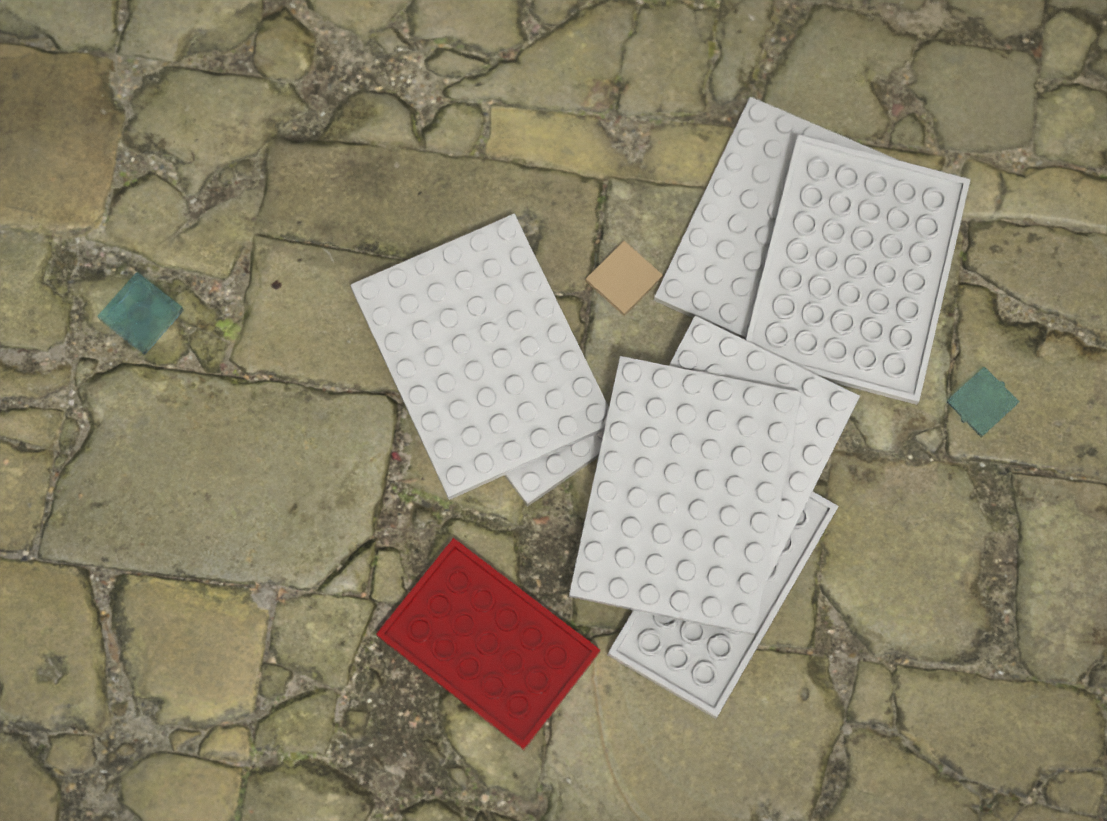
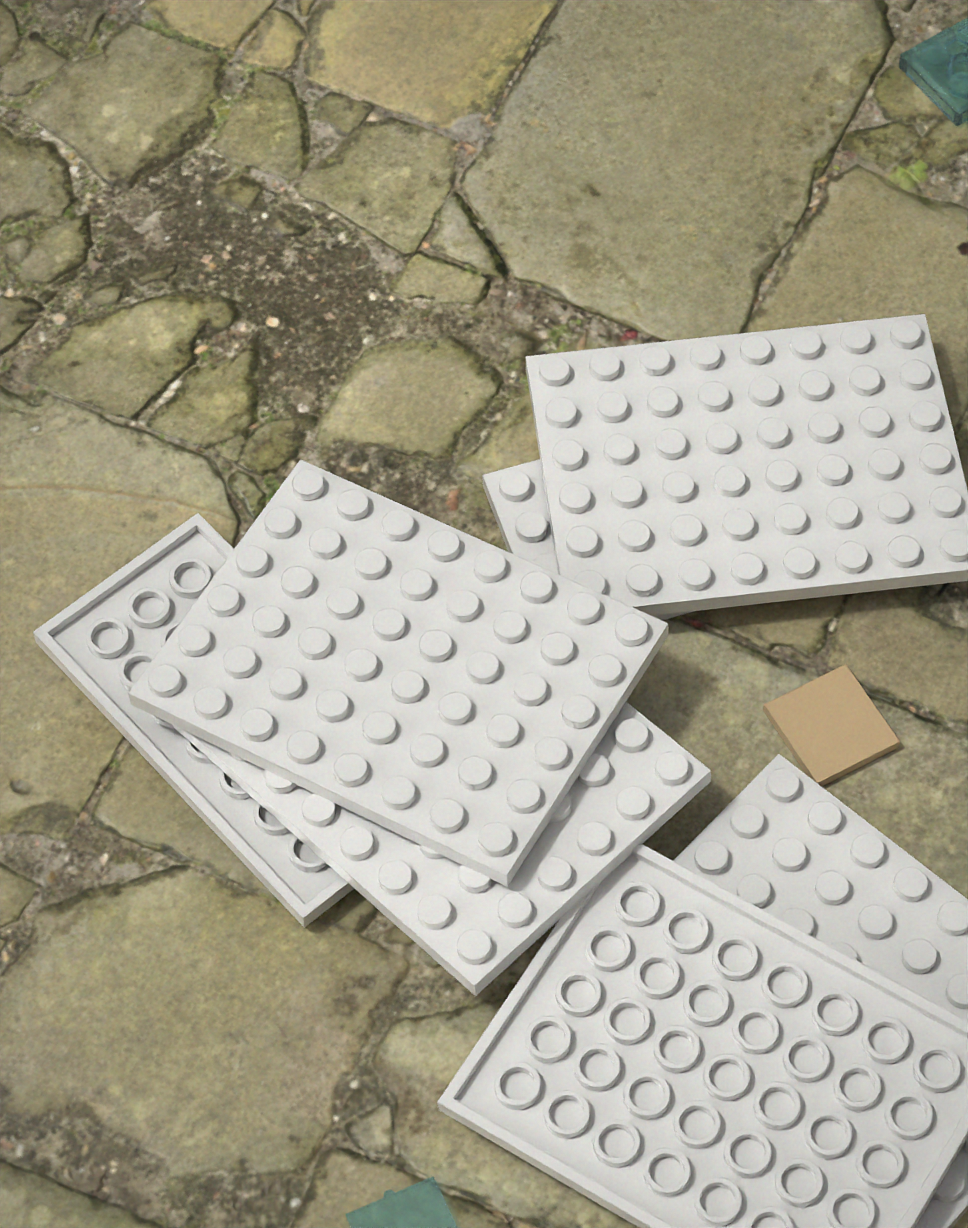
camera: 110 degrees right, 15 degrees down
(488, 643) = (281, 370): red plate -> none

